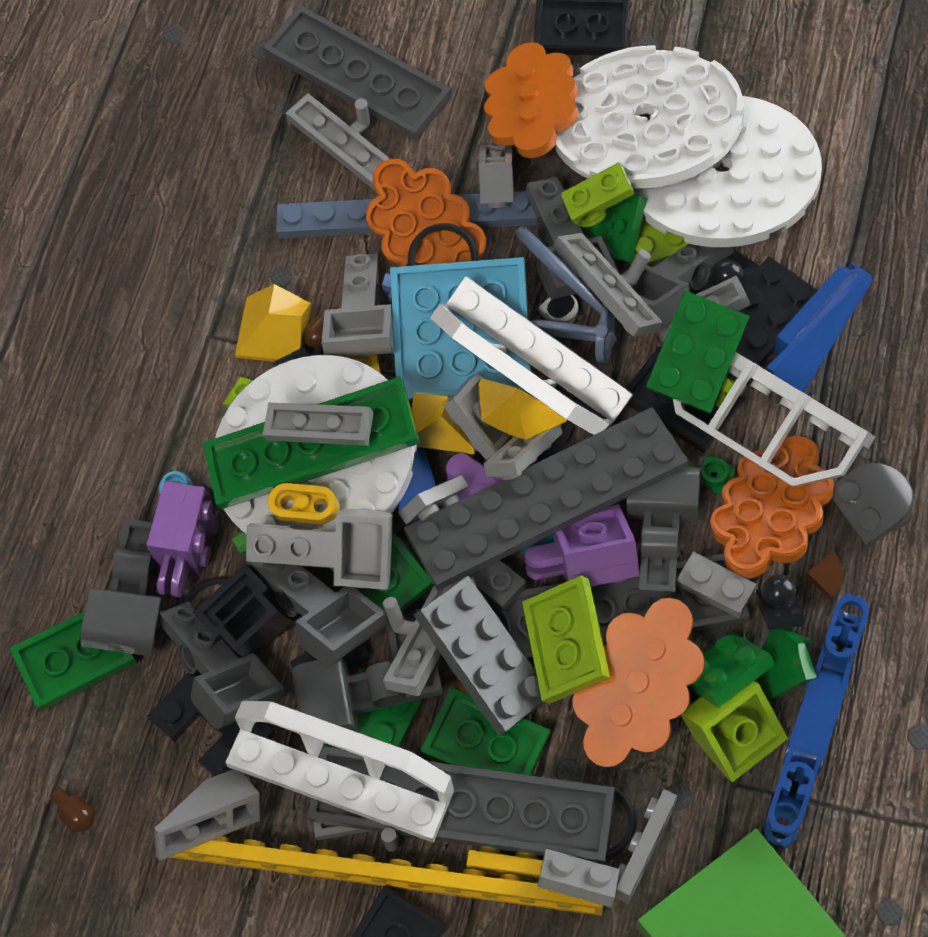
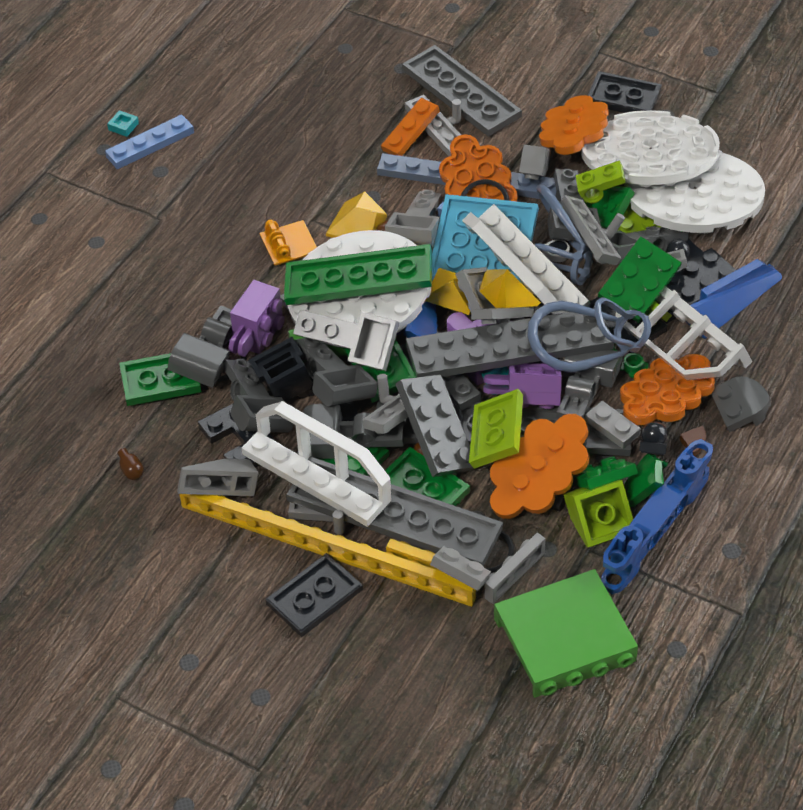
camera: 10 degrees right, 15 degrees down
(187, 383) = (287, 241): none -> light orange hinge
(305, 154) = (410, 127): none -> orange plate
(306, 503) = (341, 307): yellow plate -> none
(318, 423) = (366, 259): light grey plate -> none
(429, 502) = (430, 324): light grey plate -> none
(669, 420) = (625, 345): none -> sand blue animal

